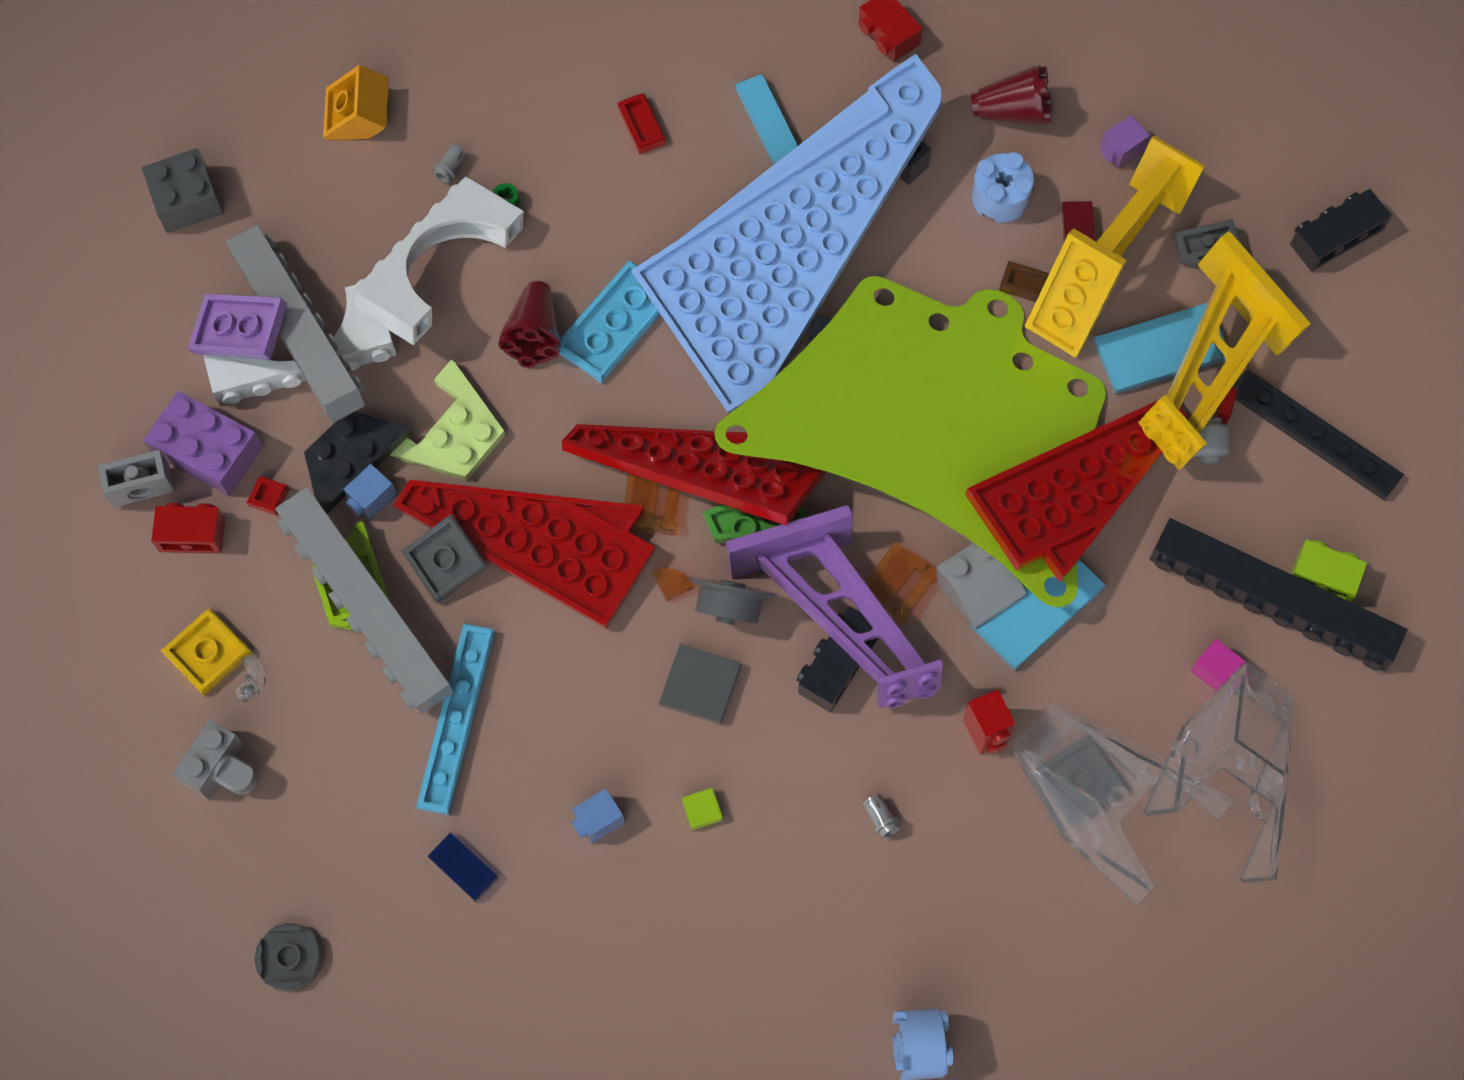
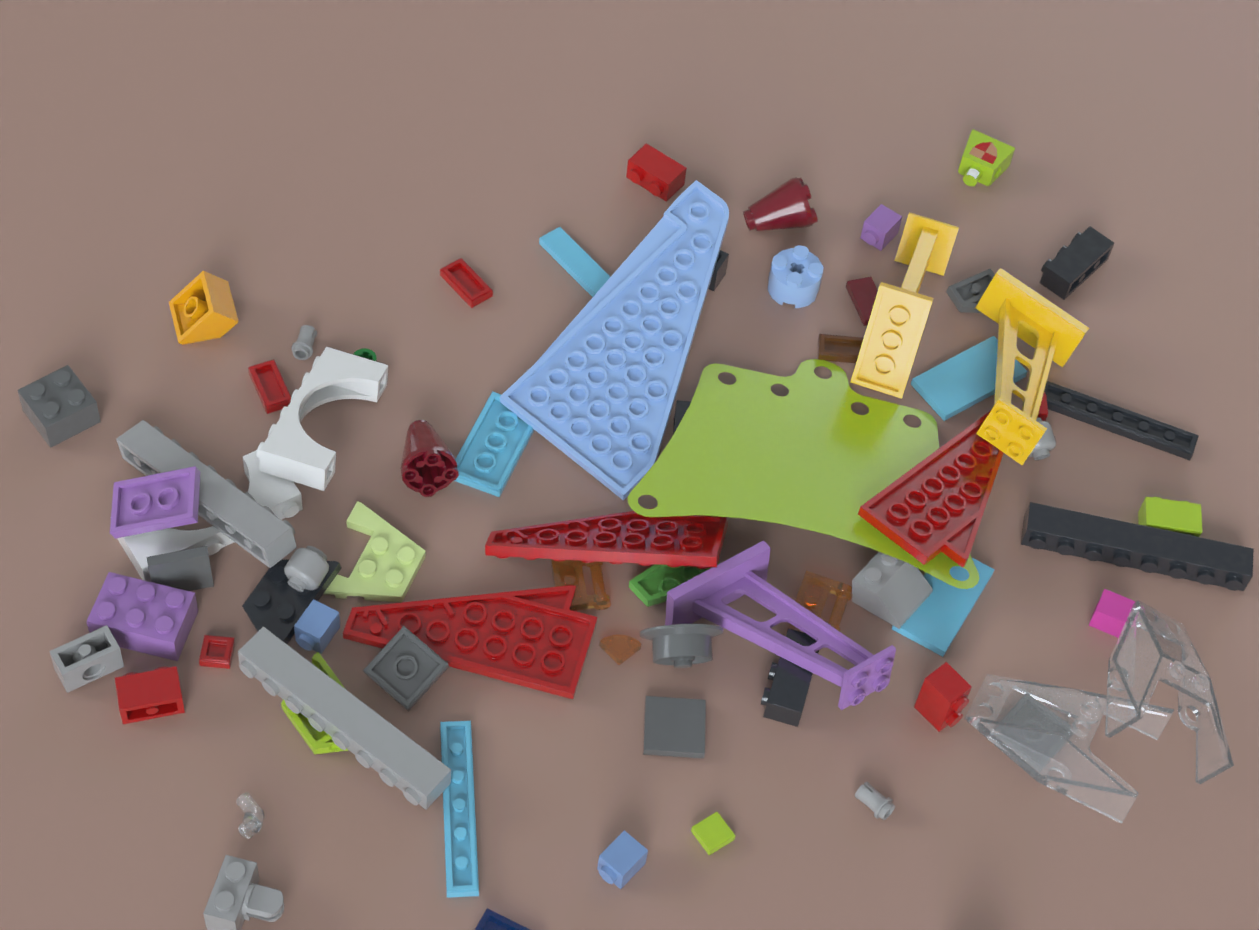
camera: 25 degrees left, 15 degrees down
(206, 651) = (197, 802): yellow tile -> none
(248, 403) = (182, 569): none -> dark grey tile
(368, 431) = (306, 568): none -> light grey head
(401, 206) = (270, 386): none -> red tile
(1278, 76) = (984, 159): none -> lime torso

